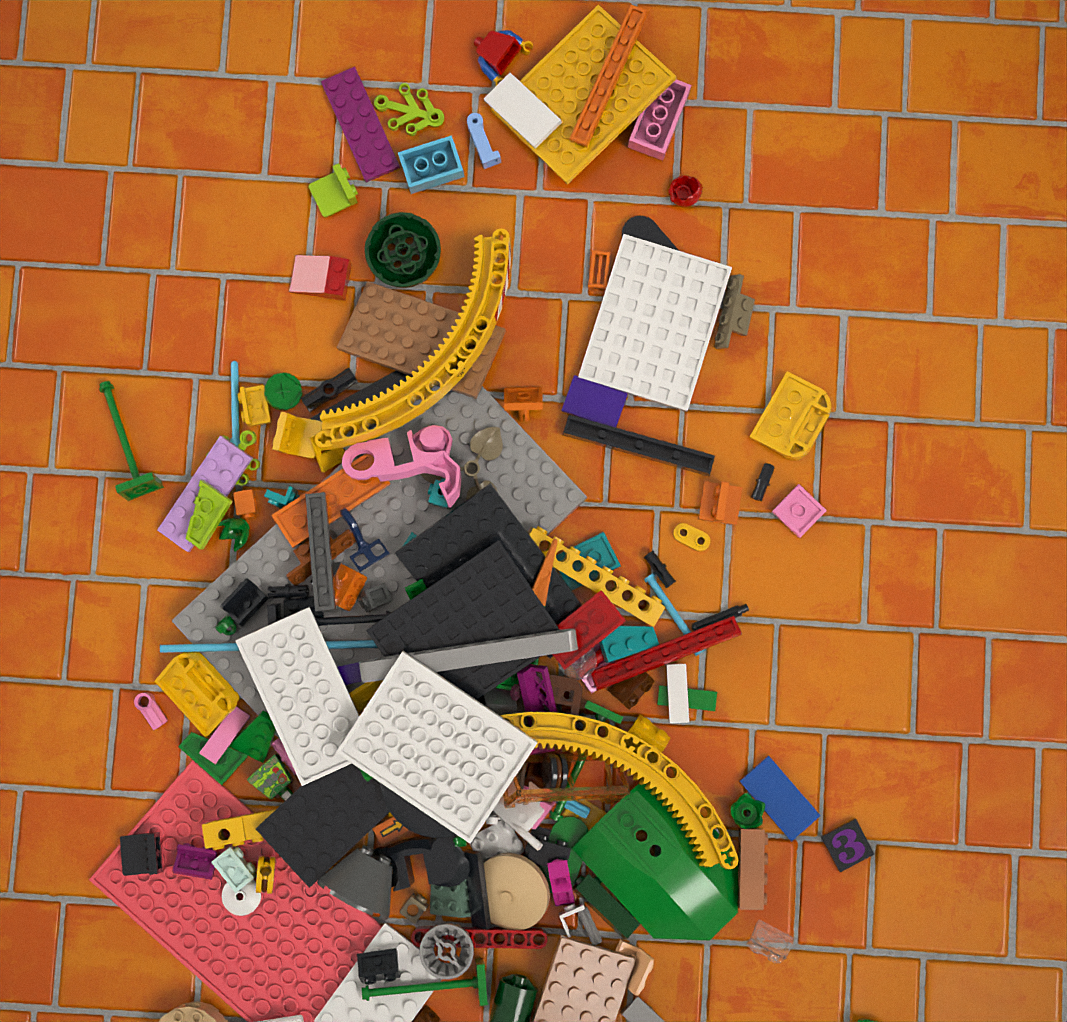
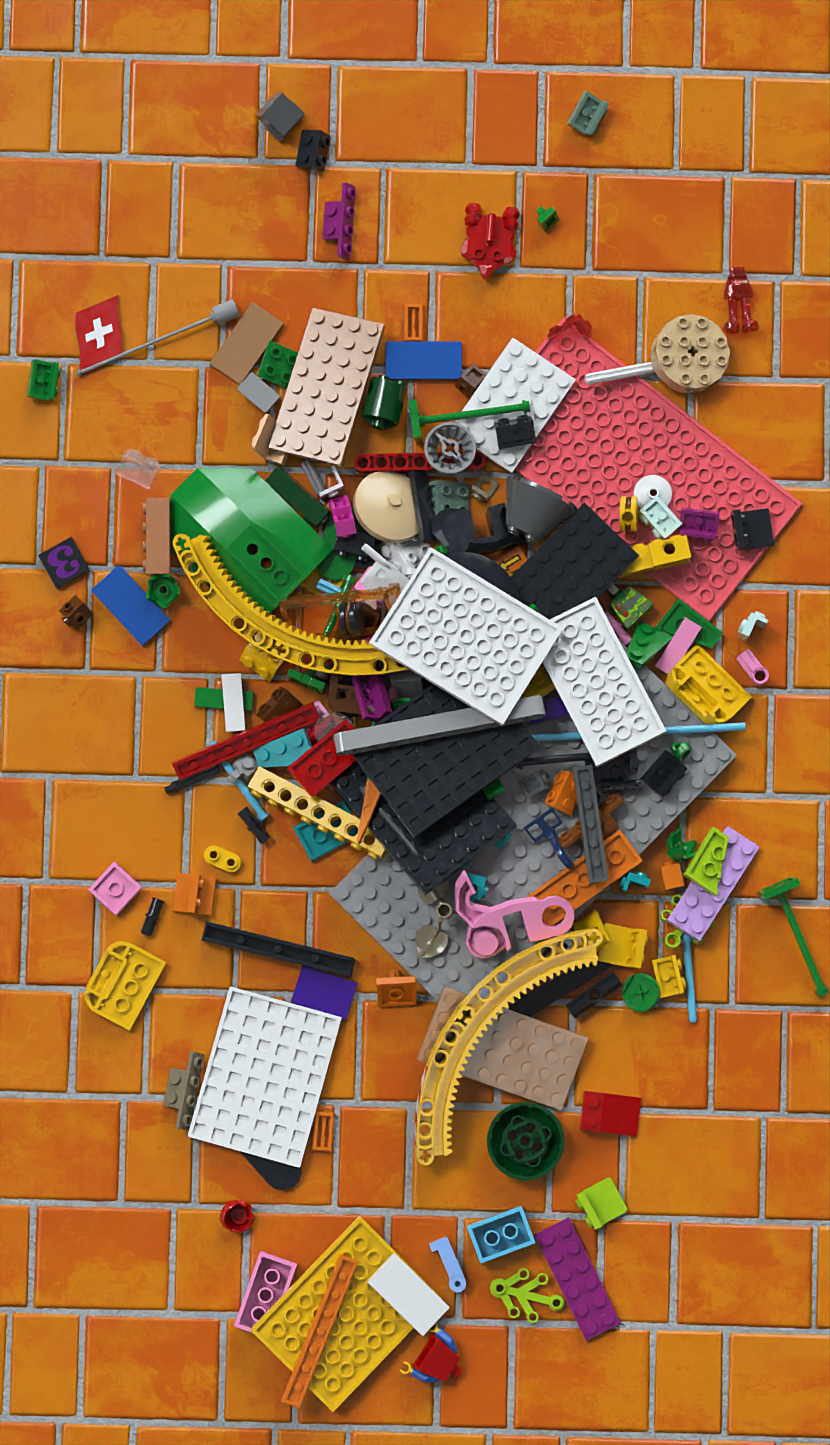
camera: 170 degrees right, 0 degrees up
(151, 752) = (747, 625): none -> light aqua bracket
(668, 627) = (243, 767): none -> light grey plate
(837, 791) = (75, 612): none -> reddish brown brick

